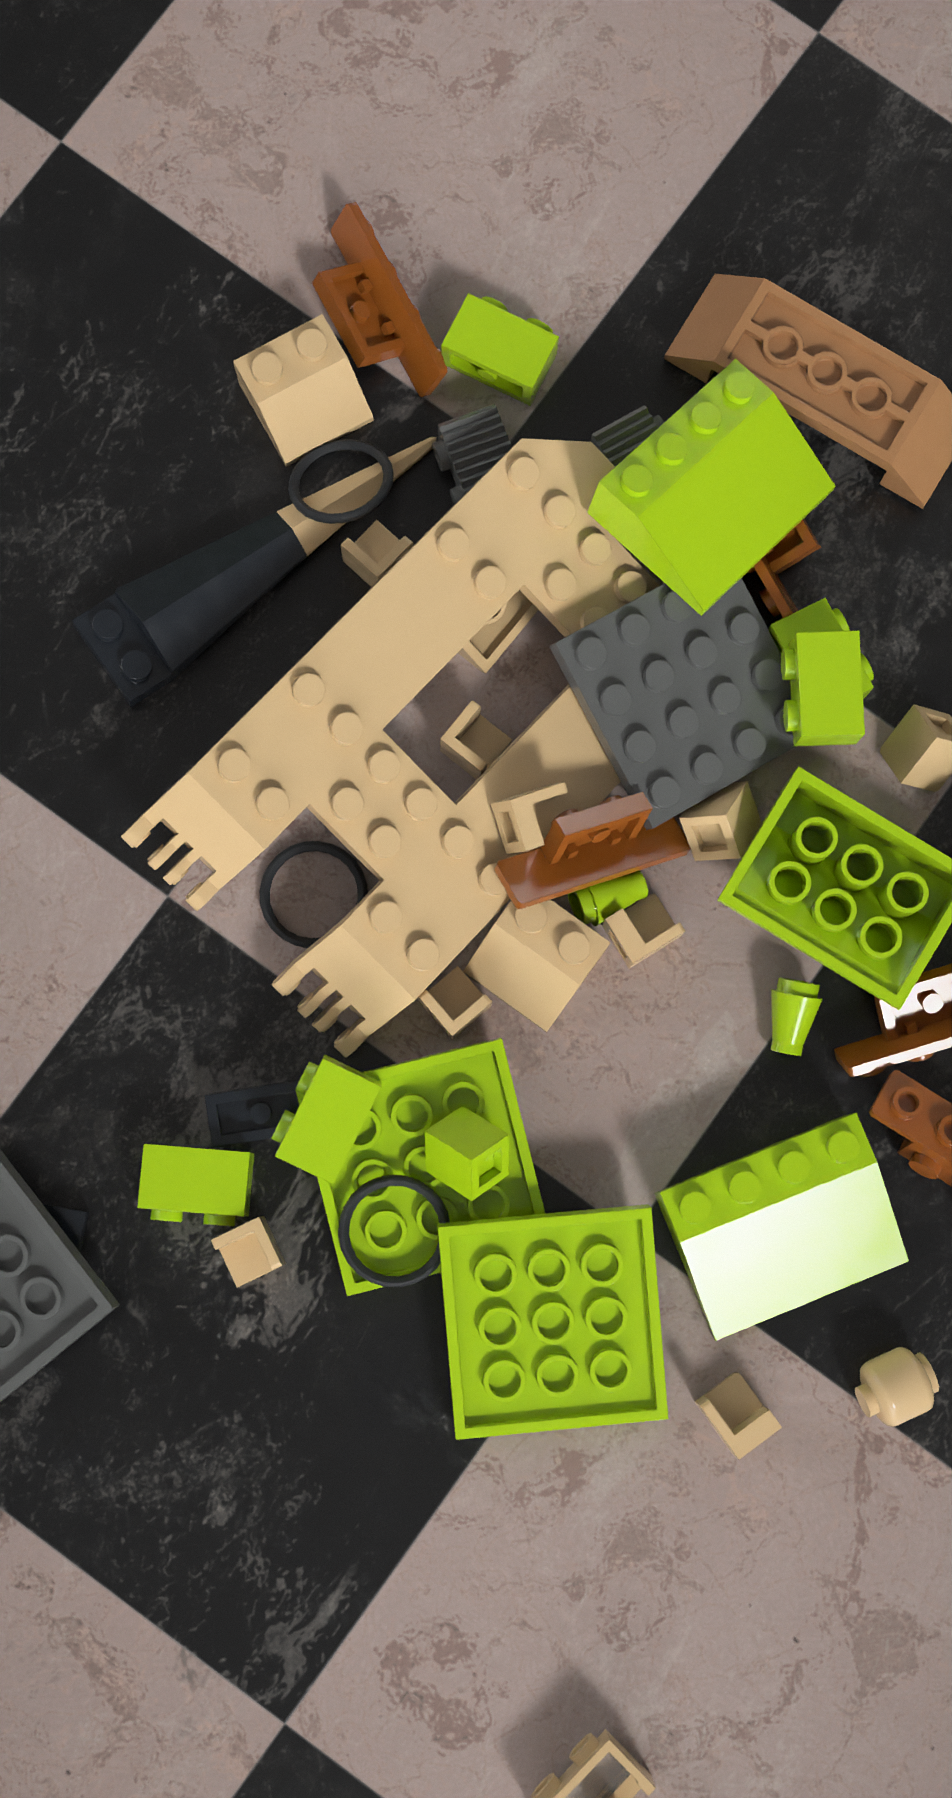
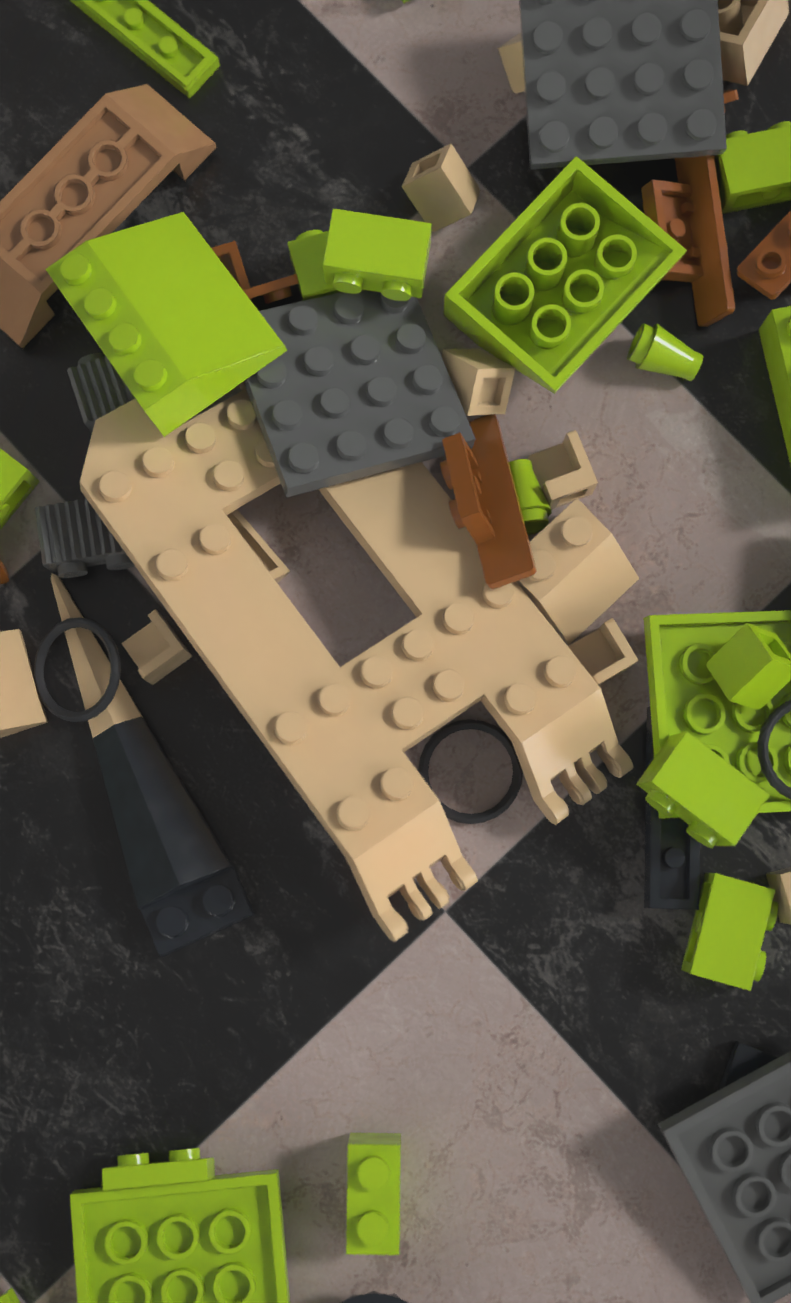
camera: 70 degrees left, 0 degrees up
(473, 741) = (357, 591): tan panel -> none
(527, 817) = (448, 550): tan panel -> none

